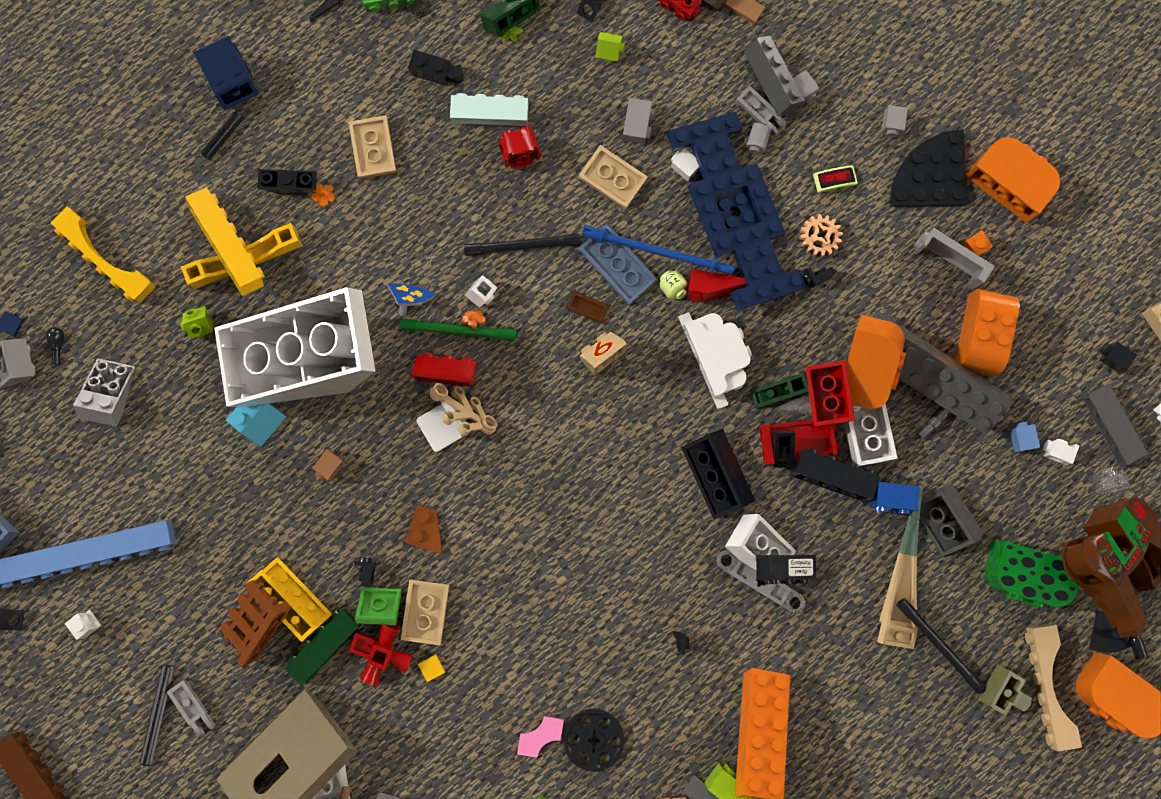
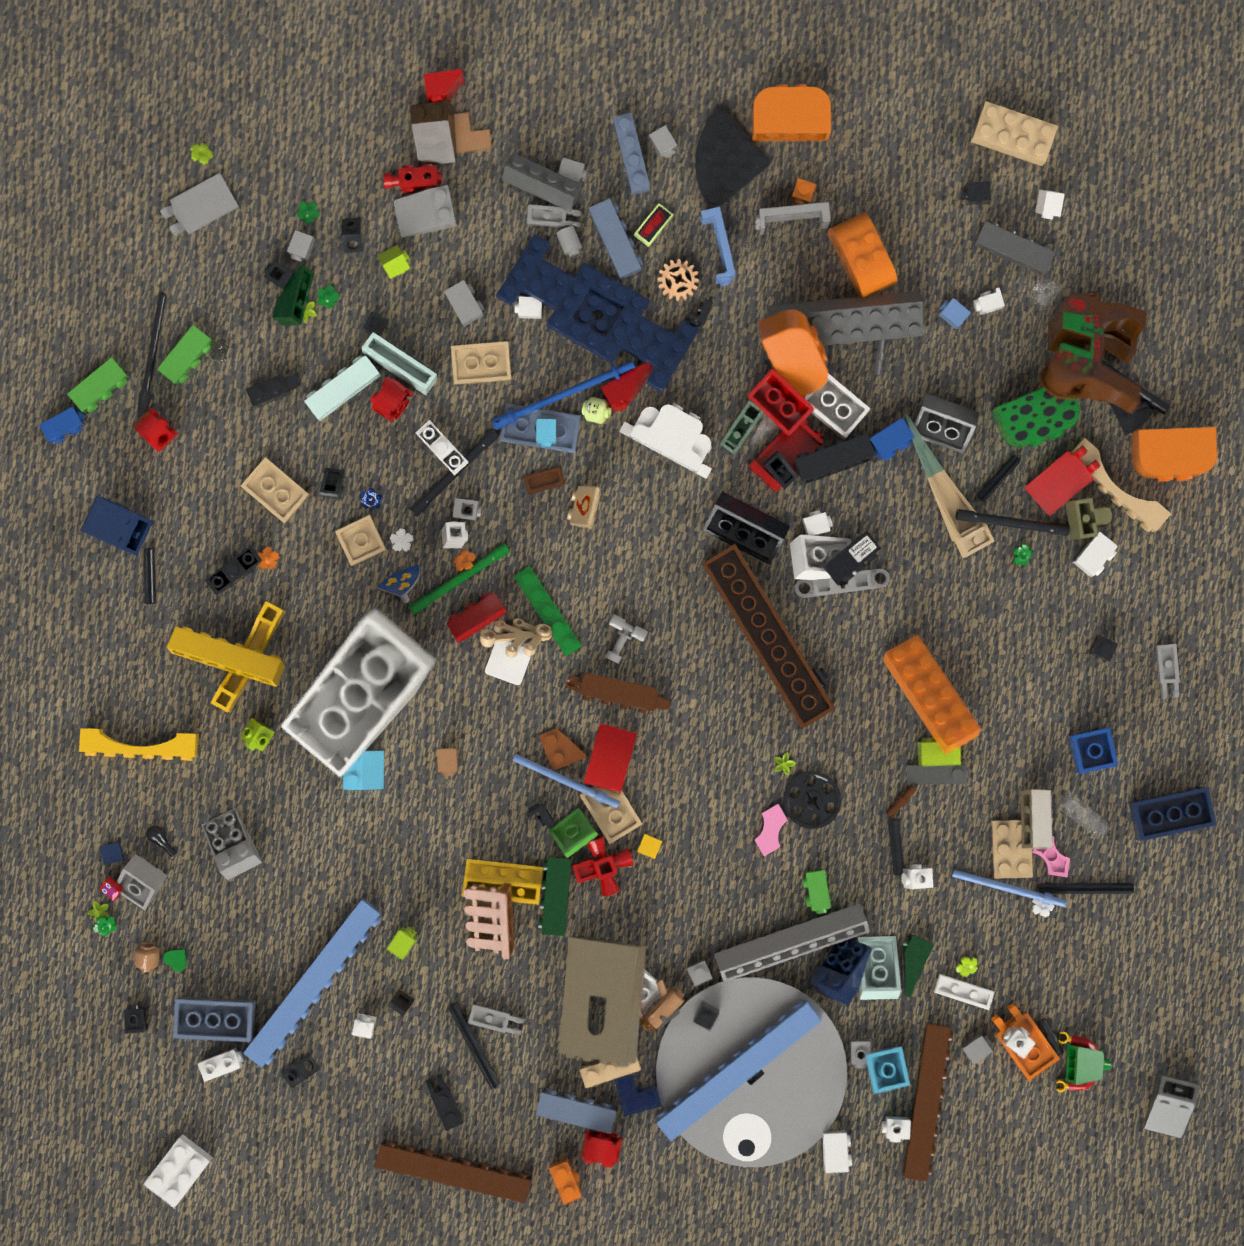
camera: 35 degrees left, 5 degrees up
(93, 743) = (445, 1104): none -> black hinge
(128, 630) = (401, 1002): none -> black plate
(168, 582) = (403, 942): none -> lime brick
(318, 26) = (155, 429): none -> red brick
(405, 238) = (360, 540): none -> tan plate
(419, 177) = (332, 483): none -> black slope
(424, 595) = (599, 796): none -> medium blue bar
(437, 264) = (401, 540): none -> white plant
(440, 213) = (370, 499): none -> clear blue plant
(458, 570) = (610, 758): none -> red slope
(504, 274) = (459, 509): none -> light grey brick
(506, 411) = (547, 611): none -> green plate
(509, 522) = (617, 691): none -> reddish brown hinge
(528, 215) = (442, 447): none -> white slope
(536, 34) = (327, 297): none -> green plant
(548, 126) = (399, 363): none -> light aqua brick
(554, 478) = (626, 632): none -> light grey bar
(555, 83) = (375, 324): none -> black plate
(595, 690) = (784, 763): none -> lime plant
(620, 269) = (546, 432): none -> medium azure brick
(665, 29) = (425, 212): none -> light grey slope
(665, 577) = (768, 636): none -> reddish brown brick
(778, 516) = (817, 523): none -> white brick
(796, 164) = (615, 239): none -> sand blue brick
(862, 110) = (631, 153): none -> sand blue brick
(888, 206) = (714, 216): none -> medium blue panel
(928, 679) = (1023, 554): none -> green plant
(957, 599) = (998, 478): none -> black axle
(989, 729) = (1095, 555): none -> white brick
(1010, 644) = (1061, 480): none -> red tile

